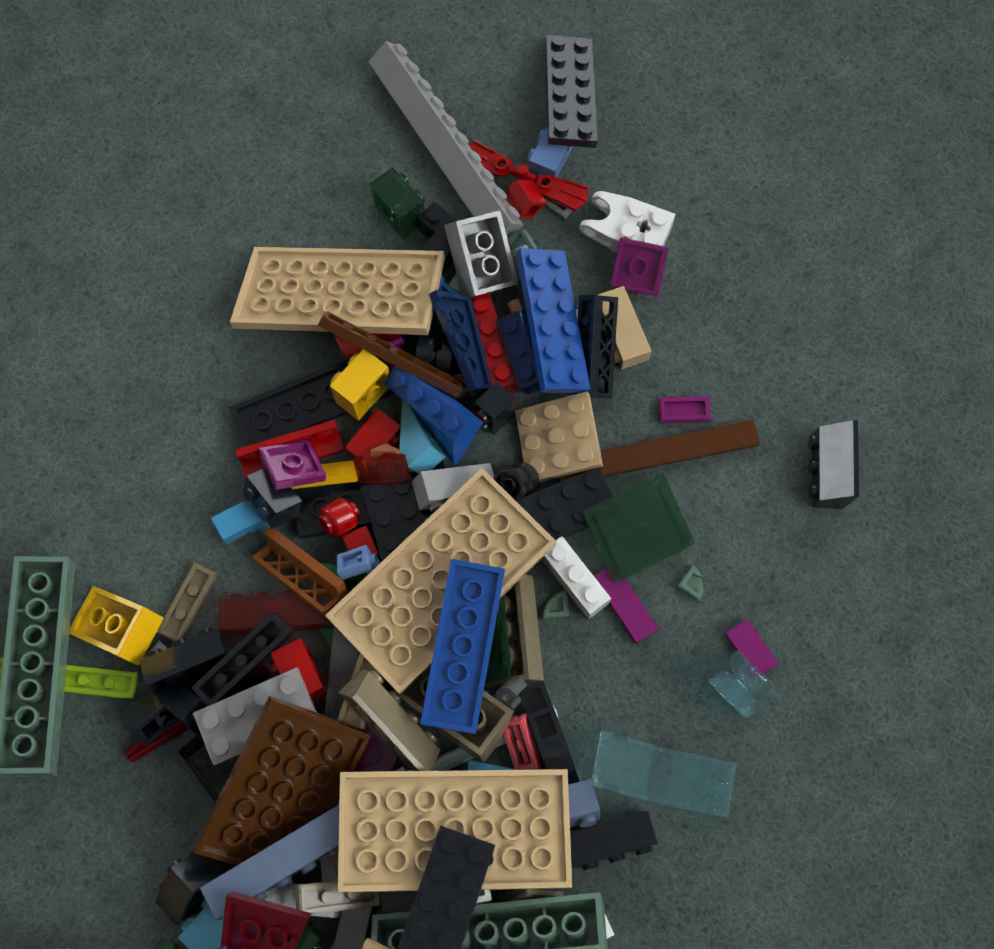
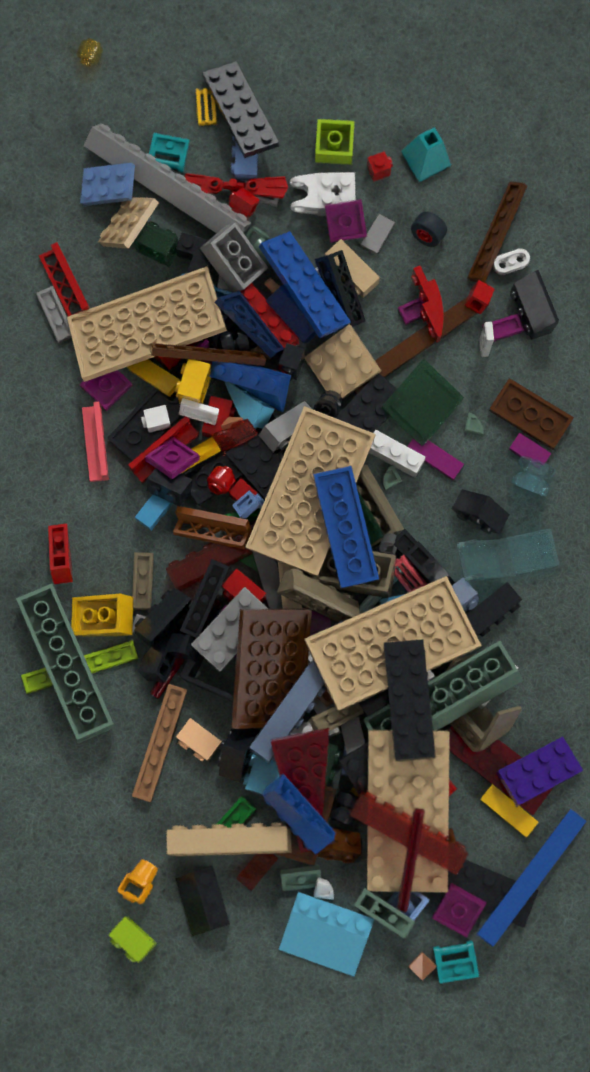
camera: 25 degrees left, 5 degrees up
(102, 526) = (60, 554): none -> red slope
(103, 823) = (159, 743): none -> medium nougat plate
(152, 842) = (199, 740): none -> light nougat brick
(214, 408) = (95, 443): none -> coral fence
(242, 237) = (54, 313): none -> light grey tile
(261, 349) = (107, 388): none -> magenta tile
(278, 207) = (73, 285): none -> red fence
(297, 409) = (156, 419): none -> white brick
(320, 355) = (155, 376): none -> yellow tile
(350, 420) = (198, 411): none -> white tile
(375, 114) = (107, 184): none -> medium blue plate
(375, 164) = (128, 222): none -> tan plate
(471, 104) = (172, 147): none -> teal plate
(526, 93) = (207, 122): none -> yellow tile
(652, 700) = (481, 511): none -> black brick
(667, 170) = (334, 141): none -> lime brick
(673, 300) = (377, 234): none -> light grey tile
(703, 411) = (432, 308): none -> red slope
(710, 220) = (379, 166): none -> red brick
(739, 318) = (429, 229): none -> black wheel
(754, 480) = (486, 339): none -> white tile
(767, 426) = (479, 297): none -> red brick
(773, 601) = (531, 414): none -> reddish brown plate
(774, 230) = (426, 155): none -> teal slope
(781, 477) = (507, 327): none -> magenta tile
(823, 356) = (497, 231): none -> reddish brown tile
(826, 399) = (511, 262): none -> white plate

